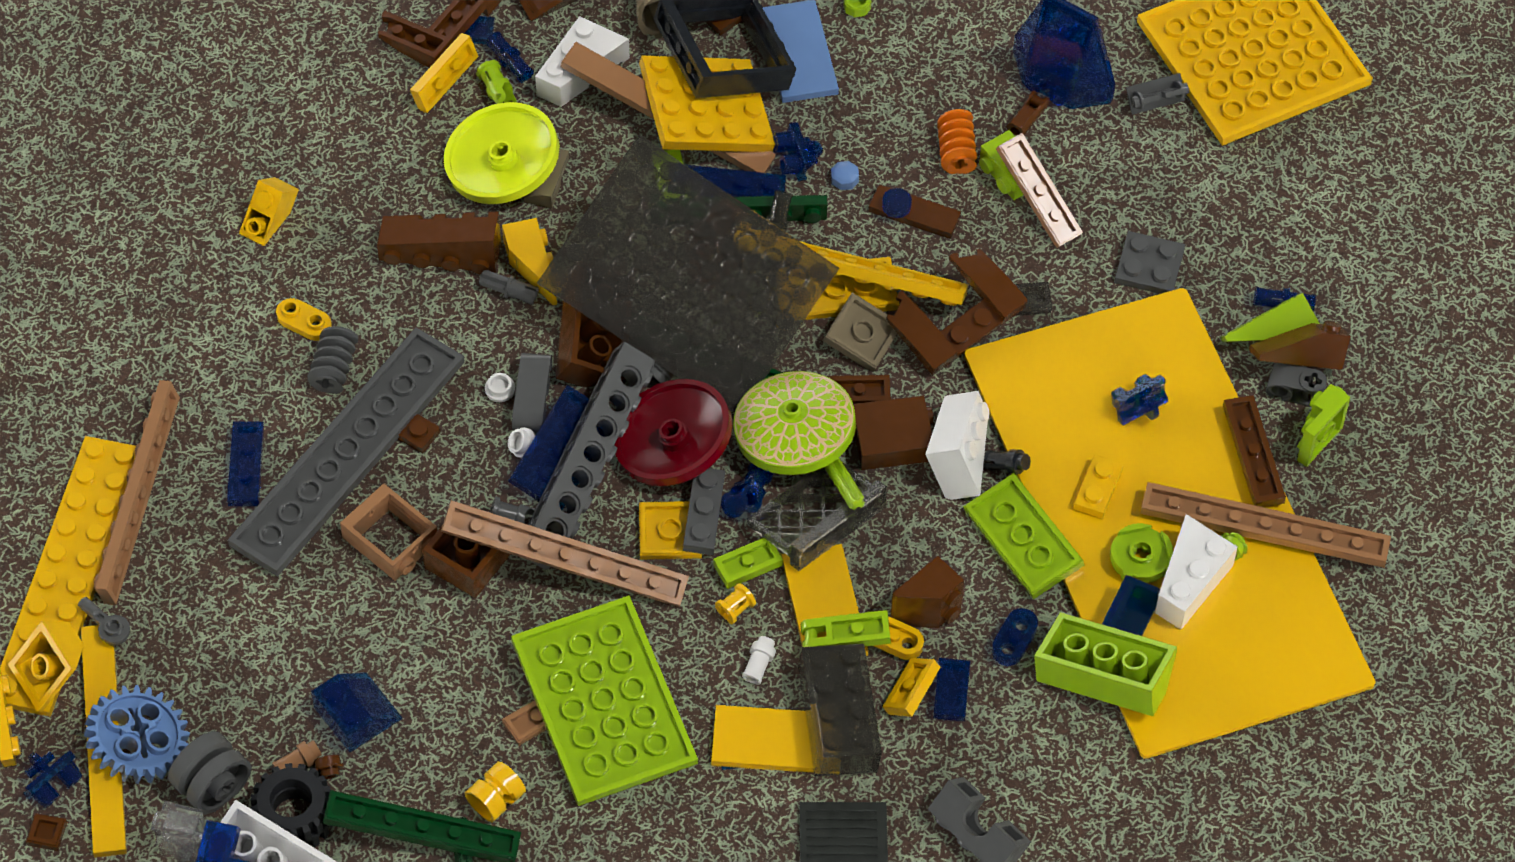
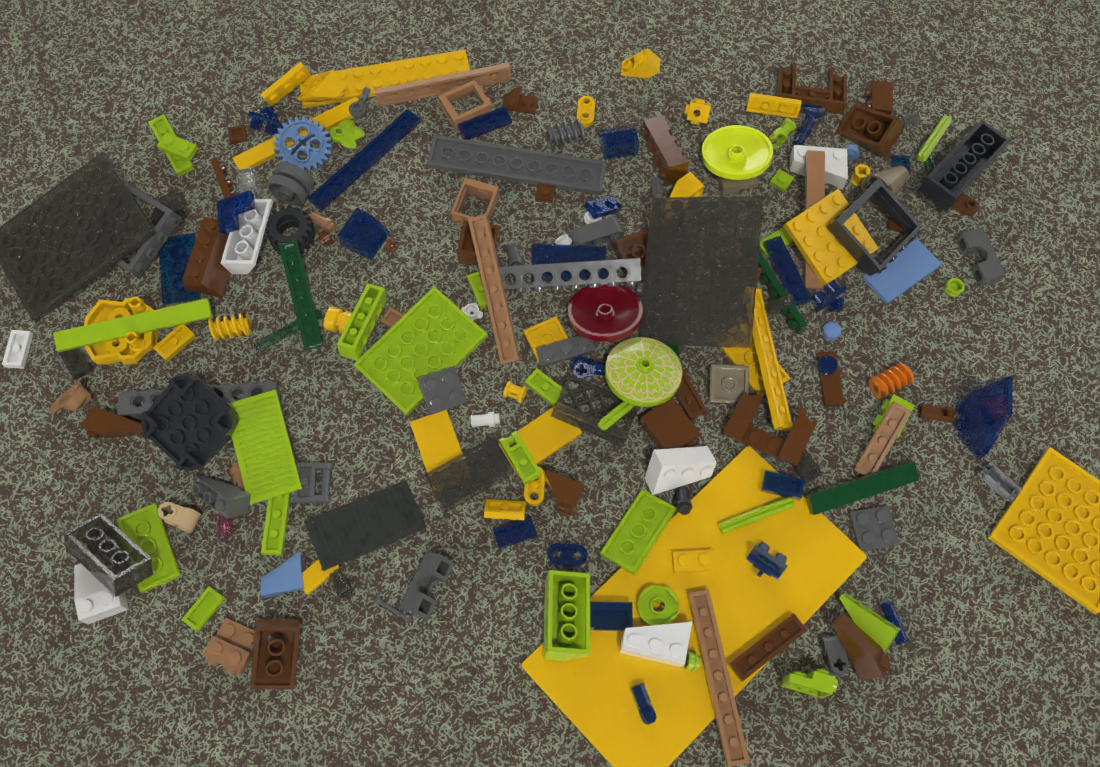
camera: 65 degrees right, 10 degrees up
(145, 667) = (346, 134): none -> lime plate
(196, 501) = (447, 98): none -> medium nougat window
(213, 656) = (364, 160): none -> clear blue plate
(232, 401) = (520, 103): none -> reddish brown slope
(385, 296) = (618, 141): none -> clear blue slope
(395, 677) = (391, 245): none -> reddish brown plate
(400, 170) = (702, 116): none -> yellow brick
(492, 363) = (603, 206): none -> clear blue plate
(502, 742) = (362, 322): none -> lime brick
(540, 582) = (477, 288): none -> lime plate
(570, 603) = (473, 307): none -> white plate
(574, 123) = (781, 180): none -> lime plate
(576, 11) = (852, 152): none -> medium blue plate
(623, 22) = (860, 172): none -> yellow bush
(686, 695) = (441, 390): none -> dark grey plate
(1044, 333) = (782, 485): none -> clear blue plate
(1069, 384) = (756, 515): none -> lime axle
(1091, 246) = (862, 487): none -> dark green tile
(1264, 626) = (643, 703): none -> clear blue bar

